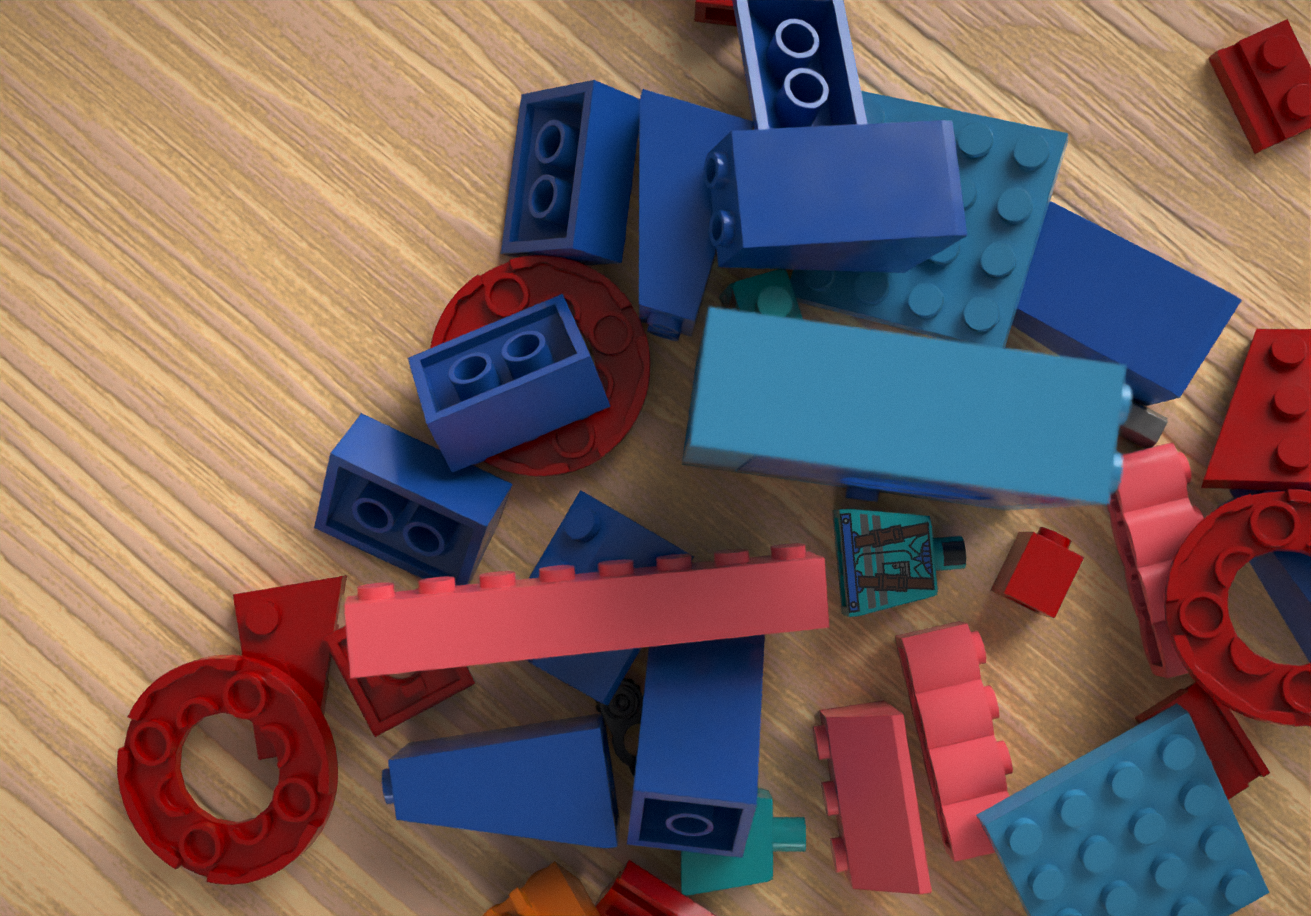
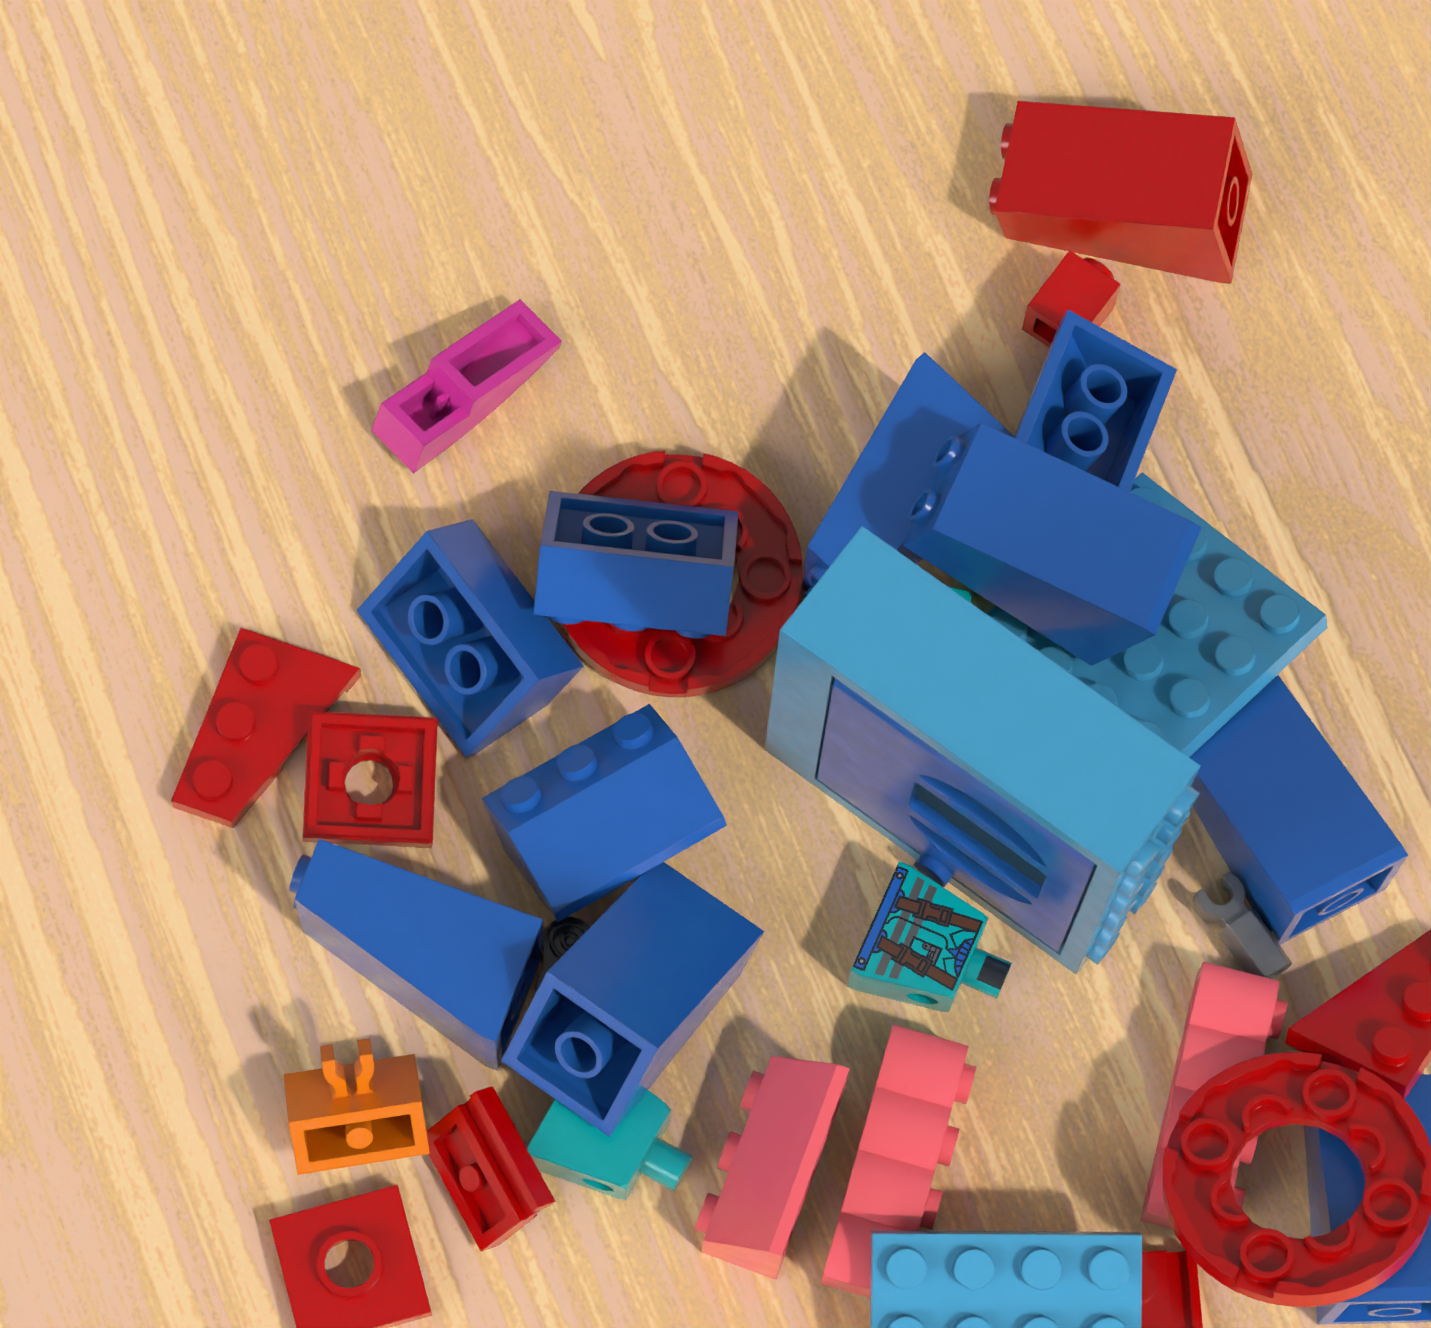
camera: 25 degrees right, 15 degrees down
(155, 787) = (70, 736): red plate -> none
(294, 304) = (464, 385): none -> dark pink slope
(572, 174) = (812, 406): blue slope -> none
(584, 611) = (596, 803): coral brick -> none
(1038, 571) = (1071, 1042): red brick -> none

